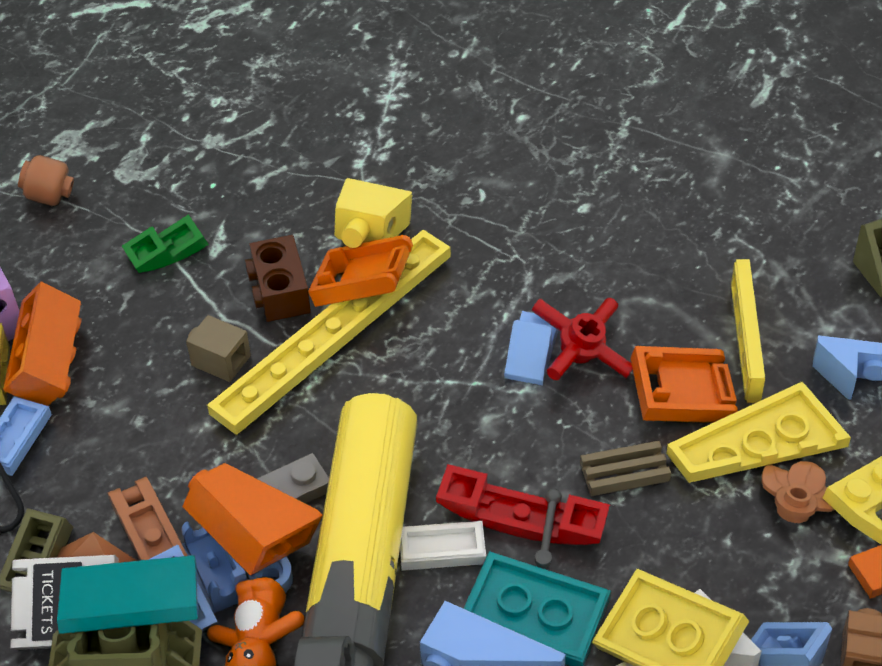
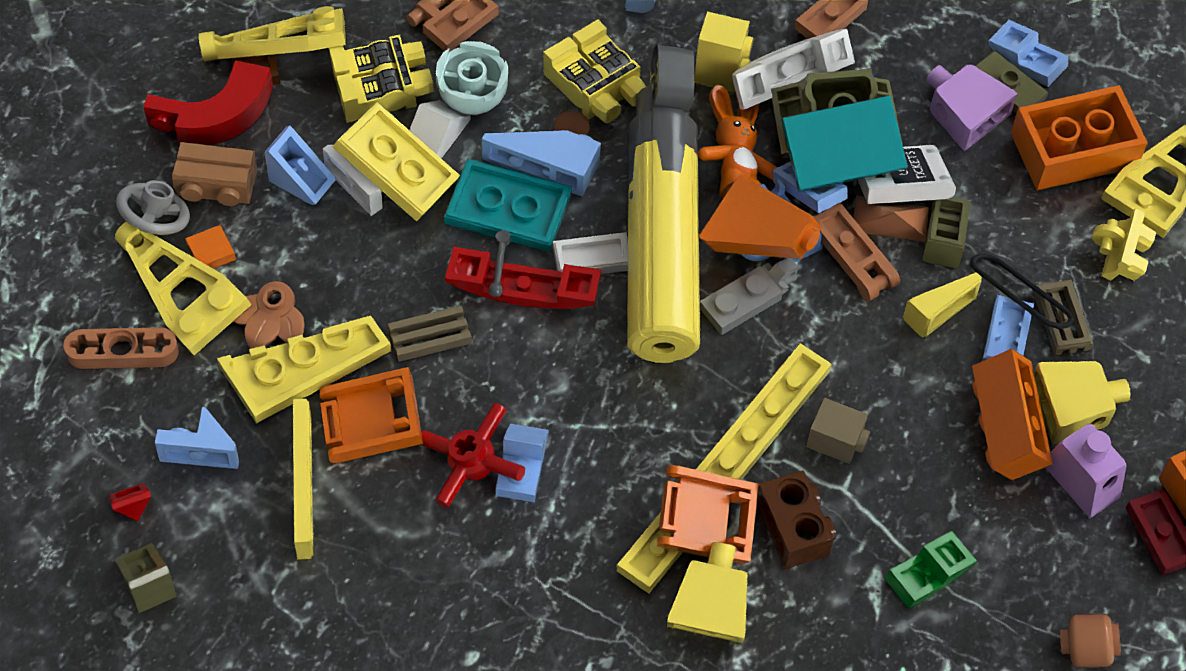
camera: 170 degrees right, 10 degrees up
(70, 463) = (938, 305): none -> light yellow slope

